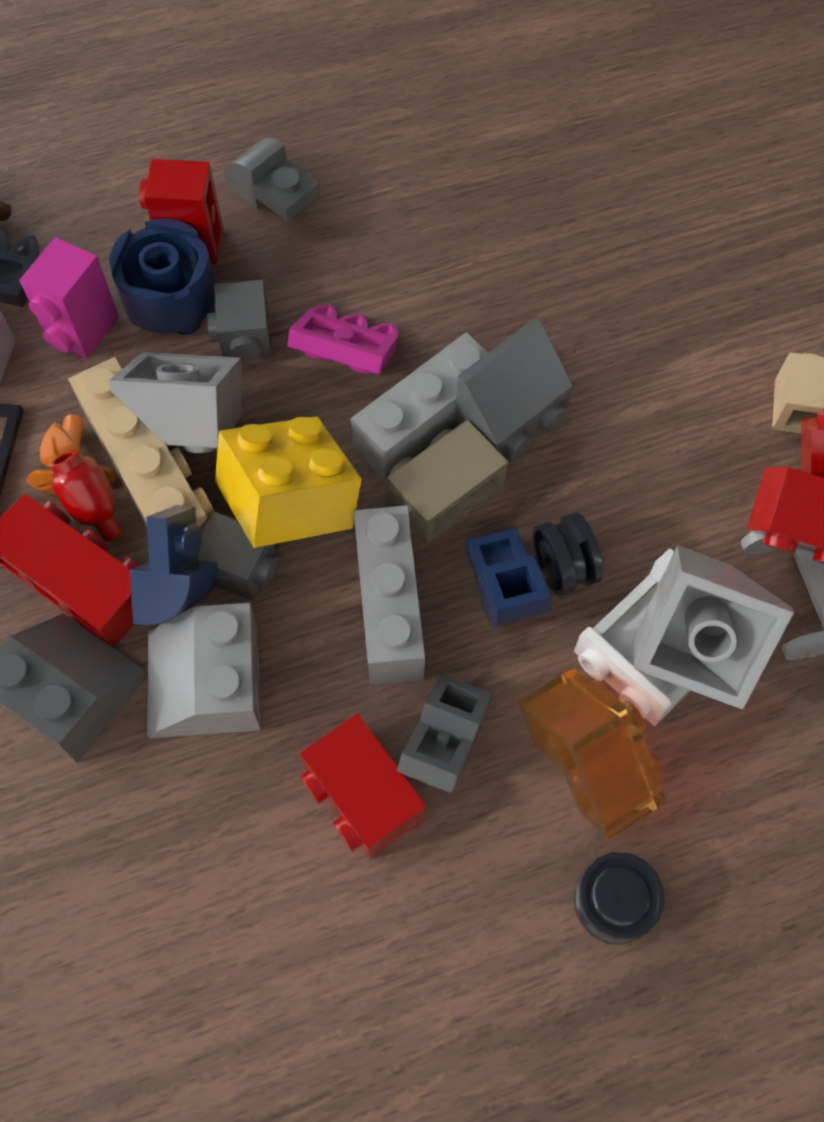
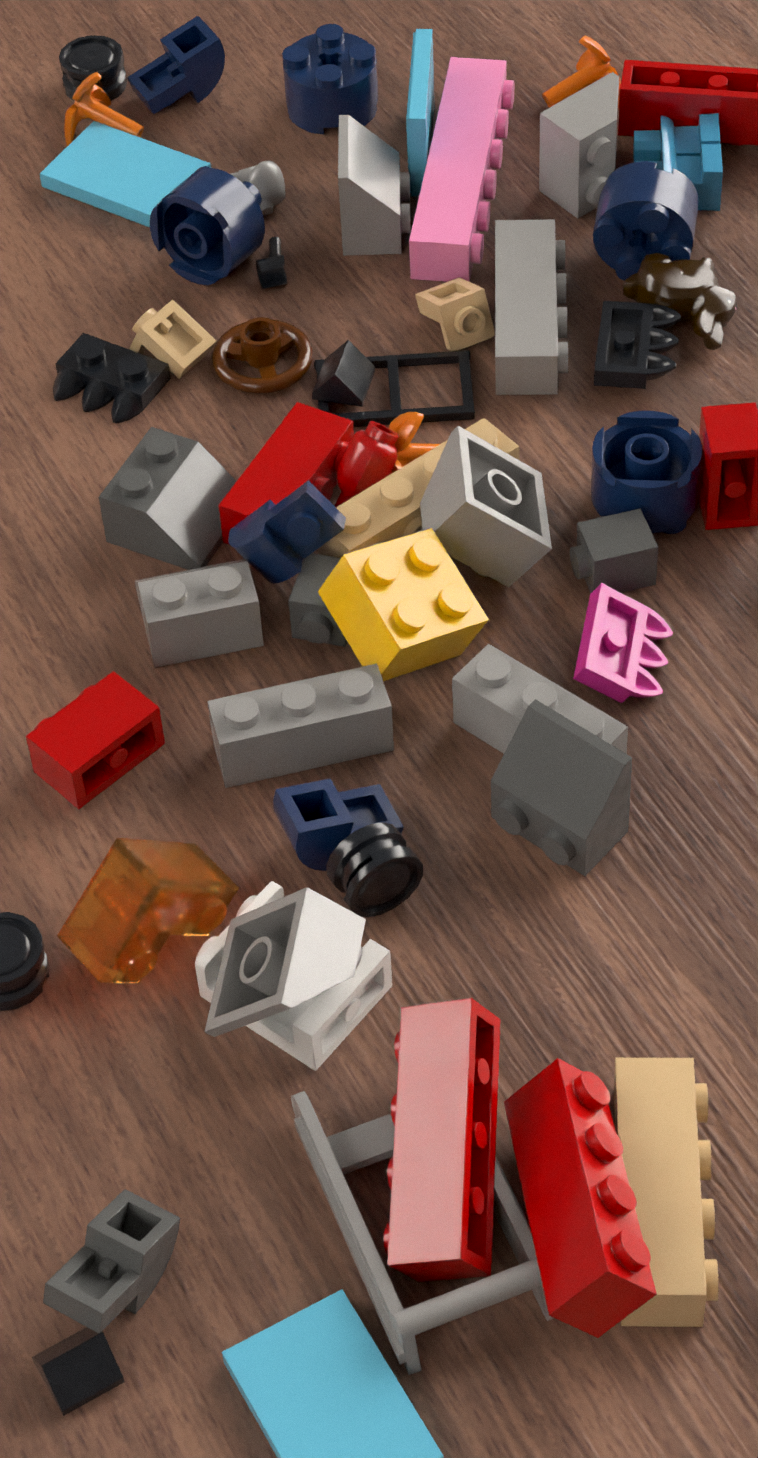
camera: 85 degrees right, 15 degrees down
(70, 298) = (586, 394): dark pink brick -> none
(445, 733) = (159, 798): dark grey brick -> none
(446, 480) = (444, 757): dark tan brick -> none

